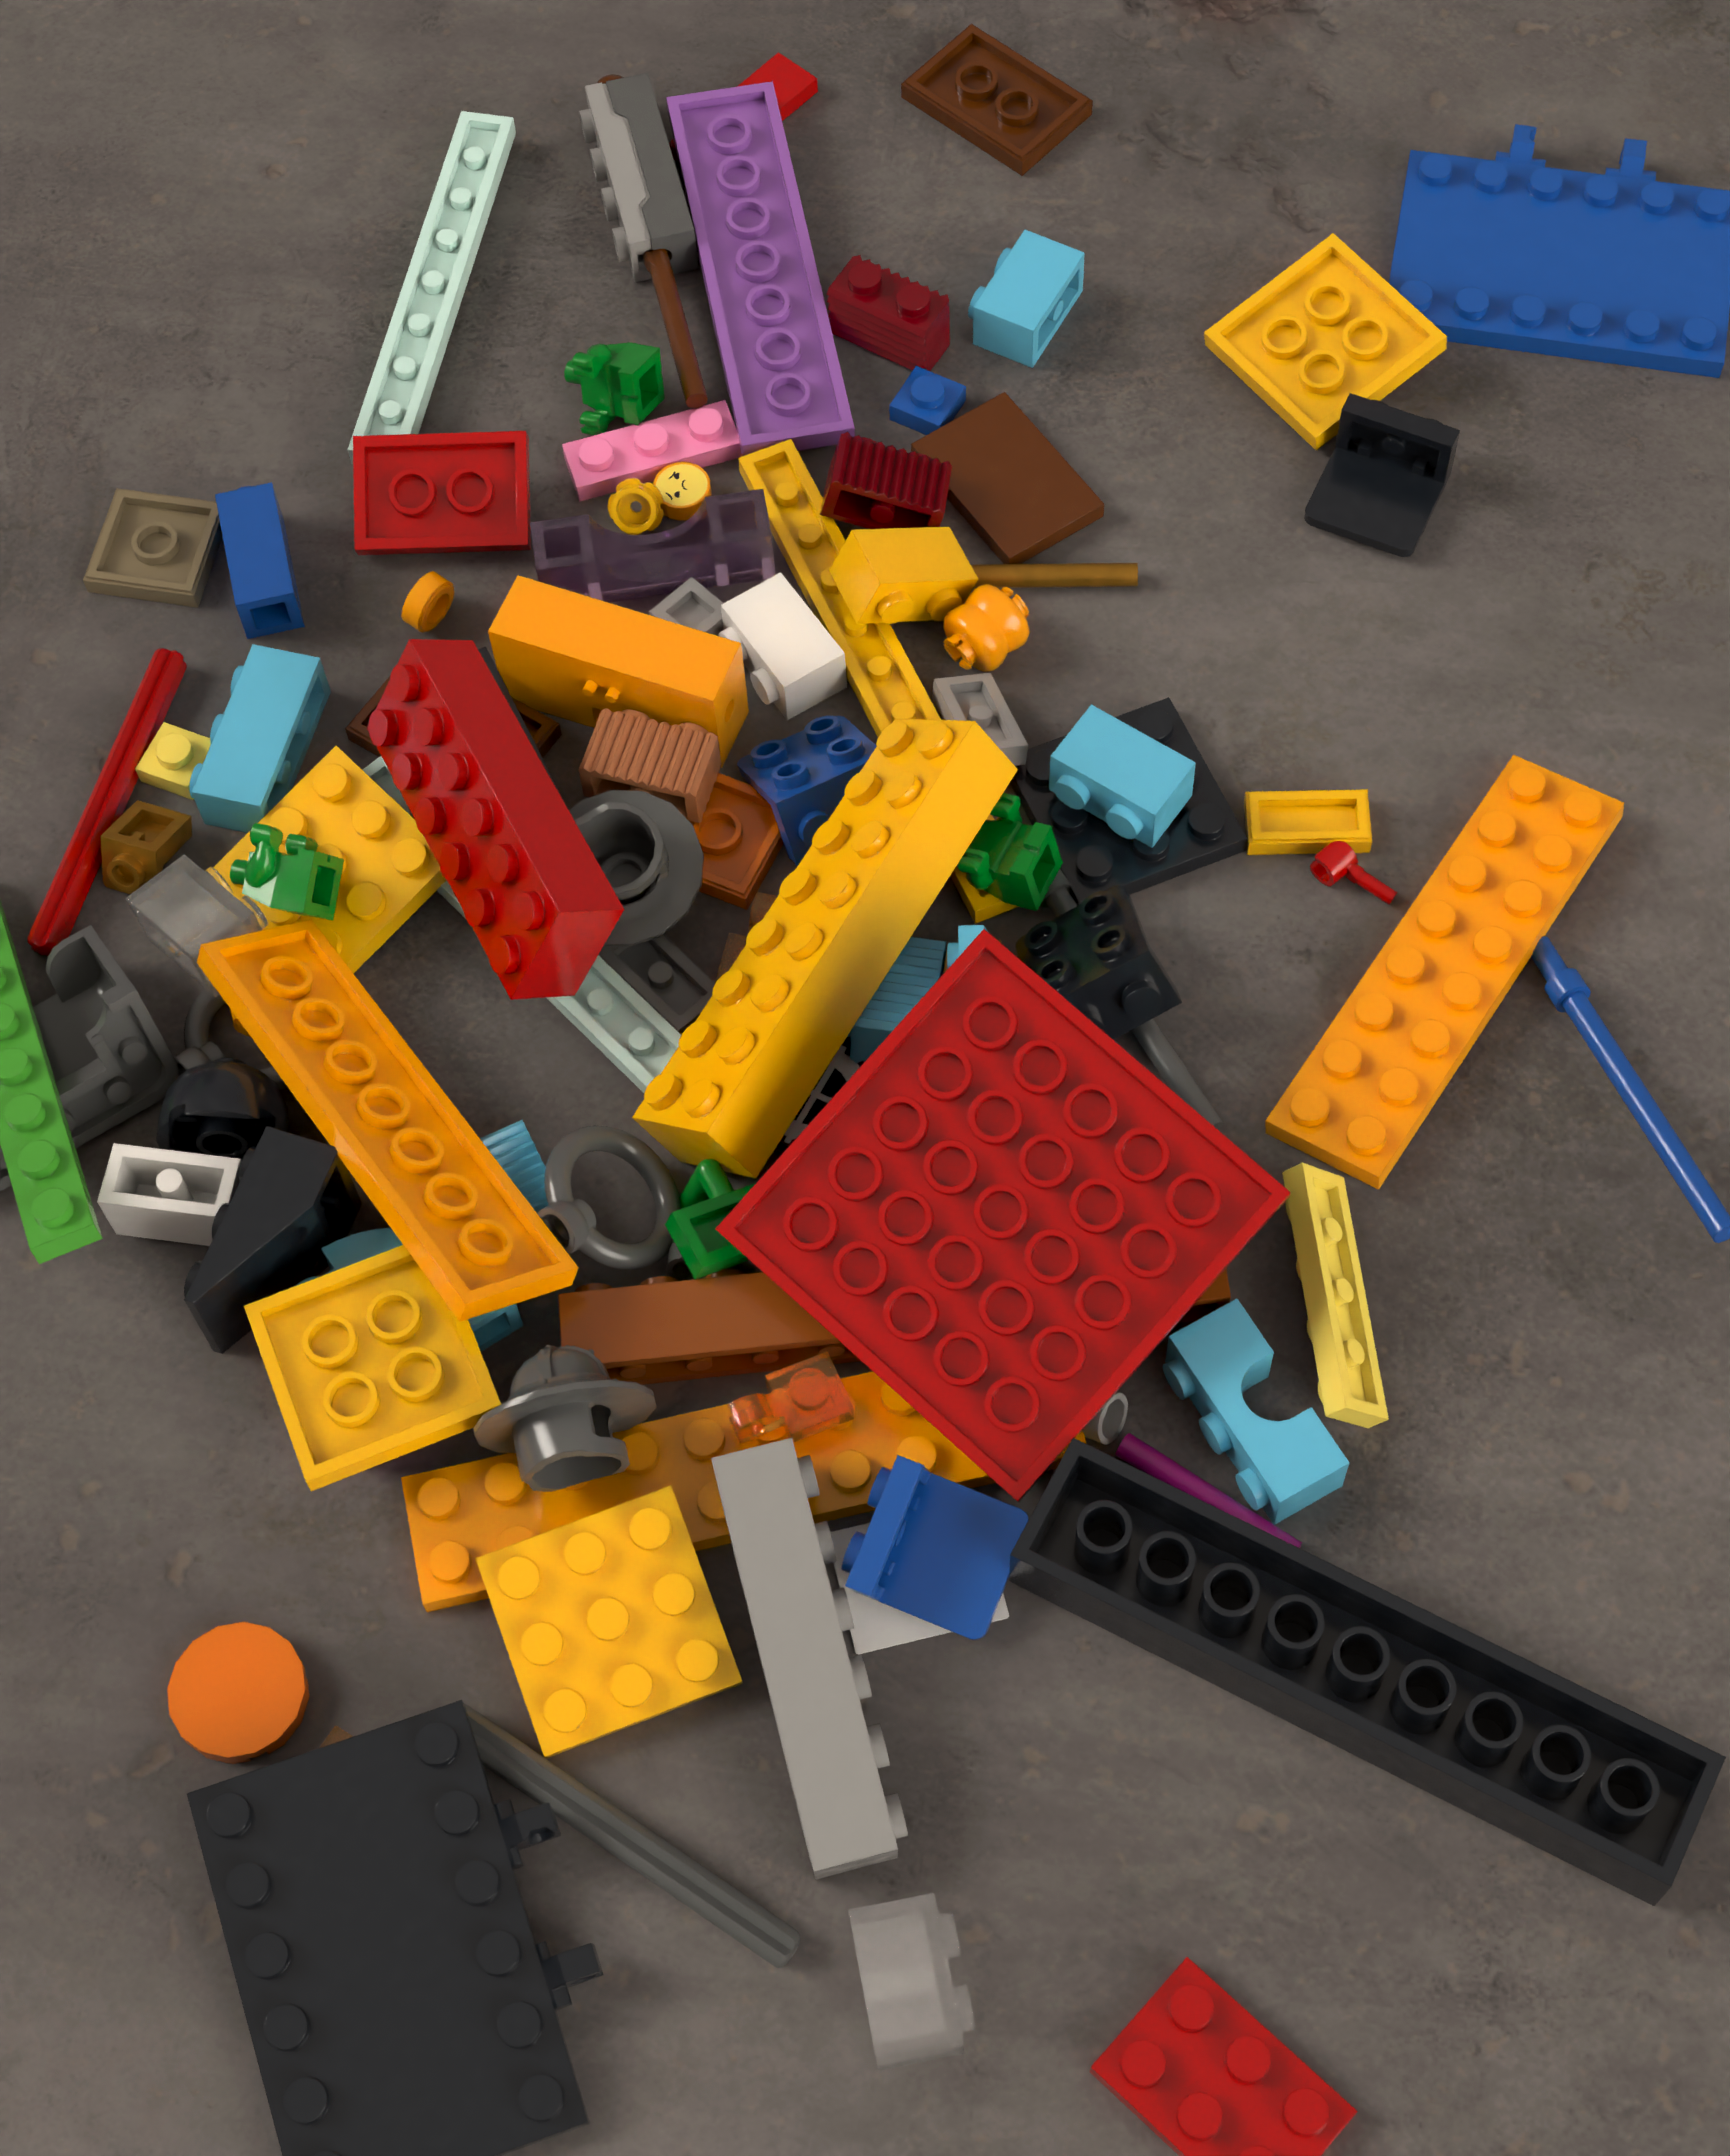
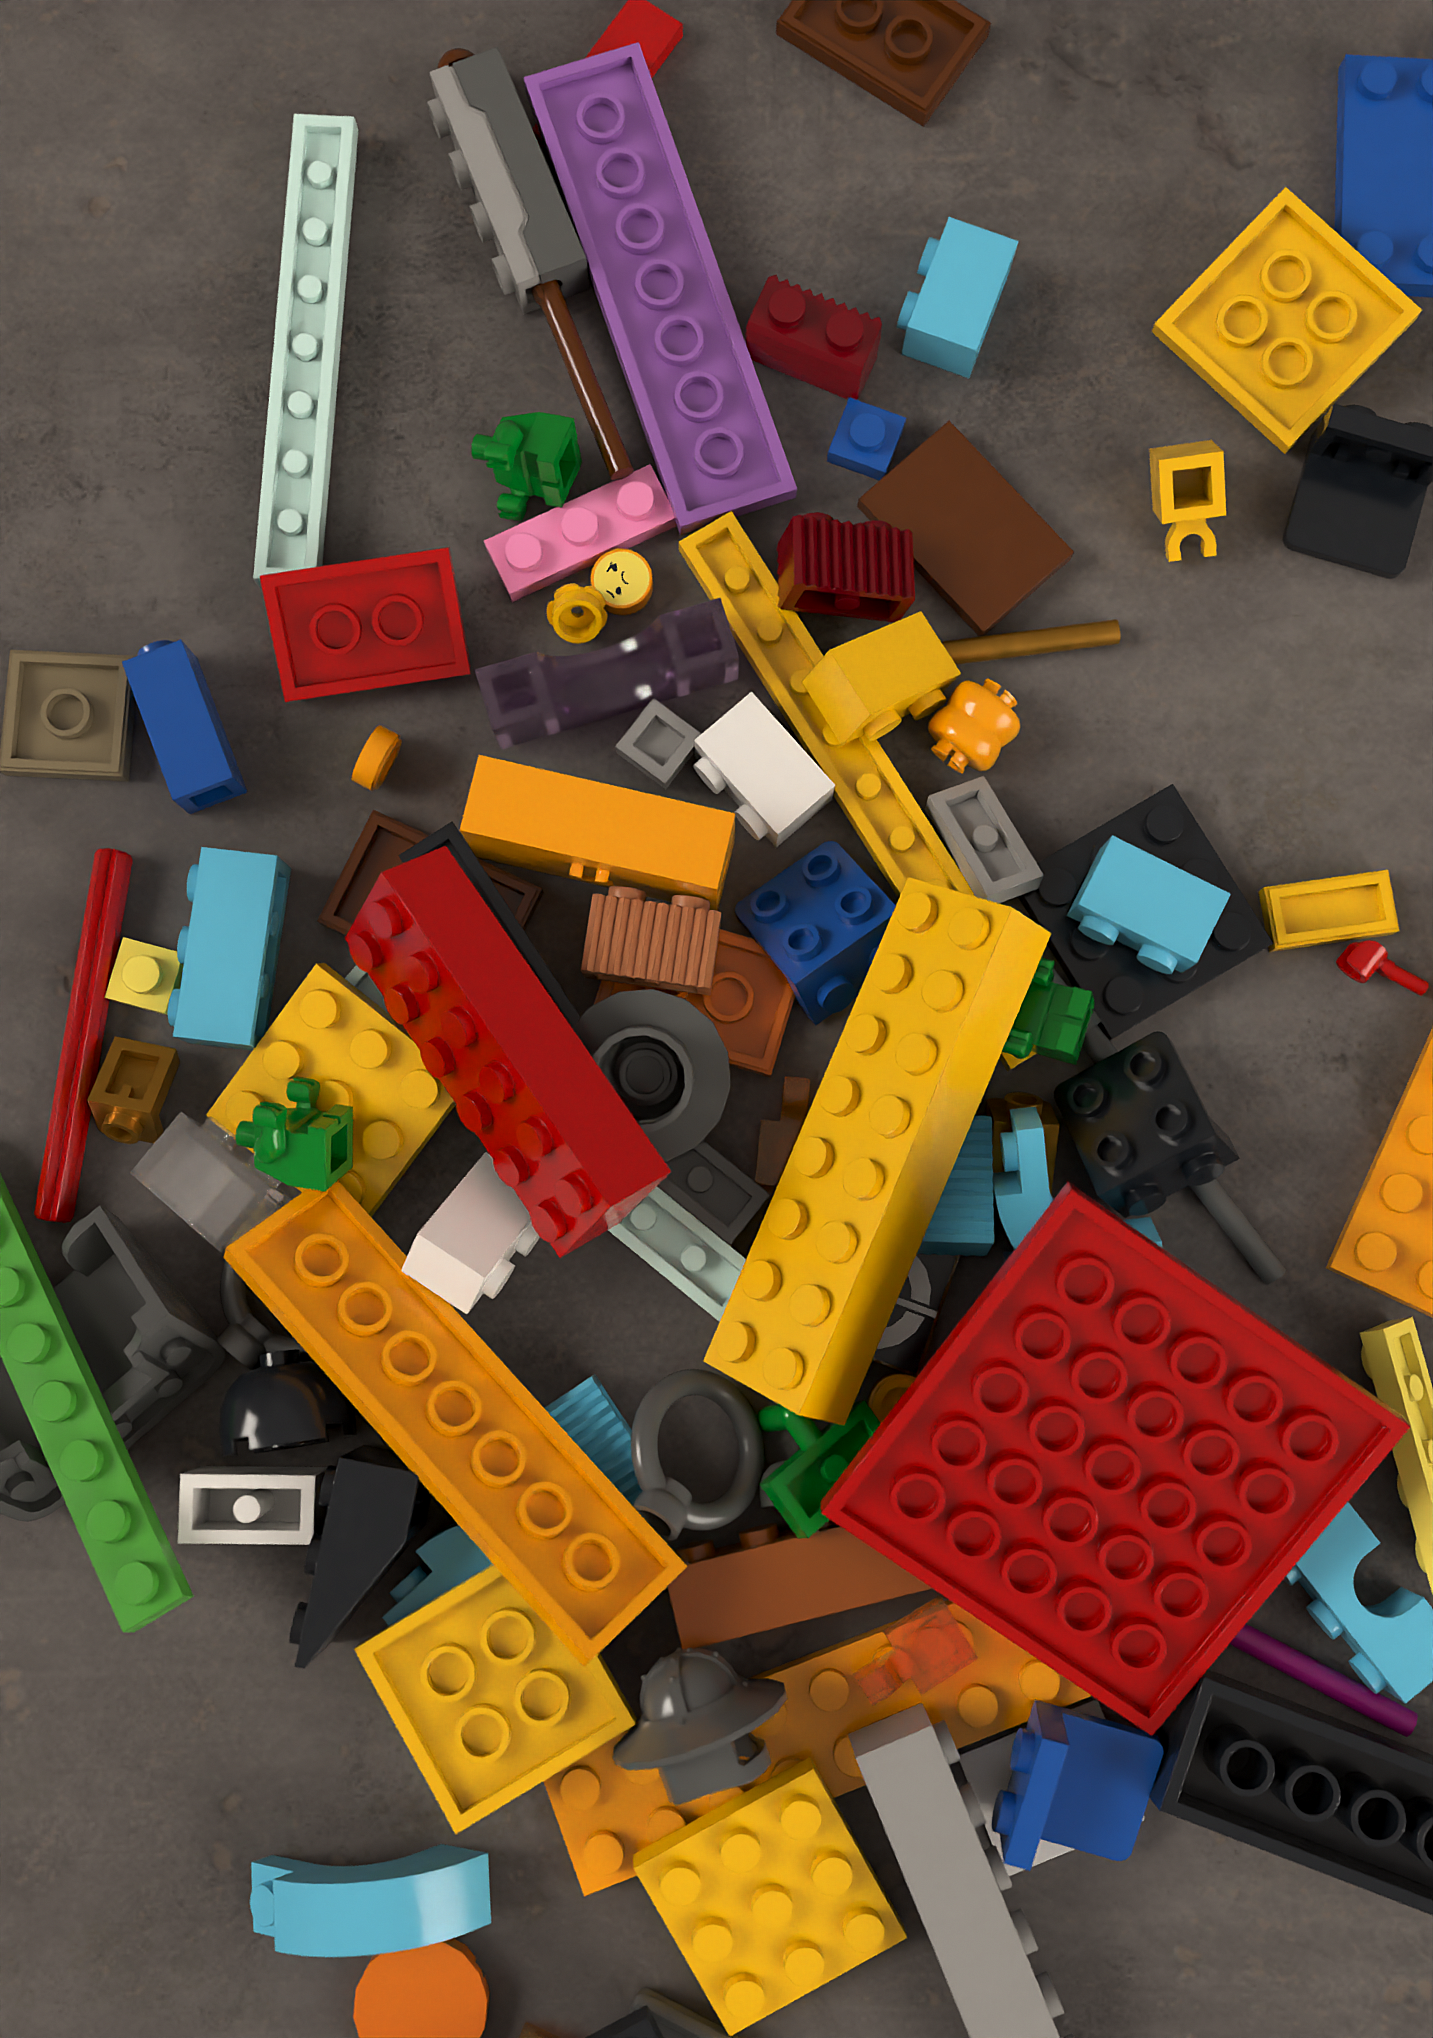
camera: 10 degrees left, 20 degrees up
(211, 1557) = (372, 1905): none -> medium azure arch
(433, 982) = (471, 1239): none -> white brick
(1213, 460) = (1186, 491): none -> yellow brick

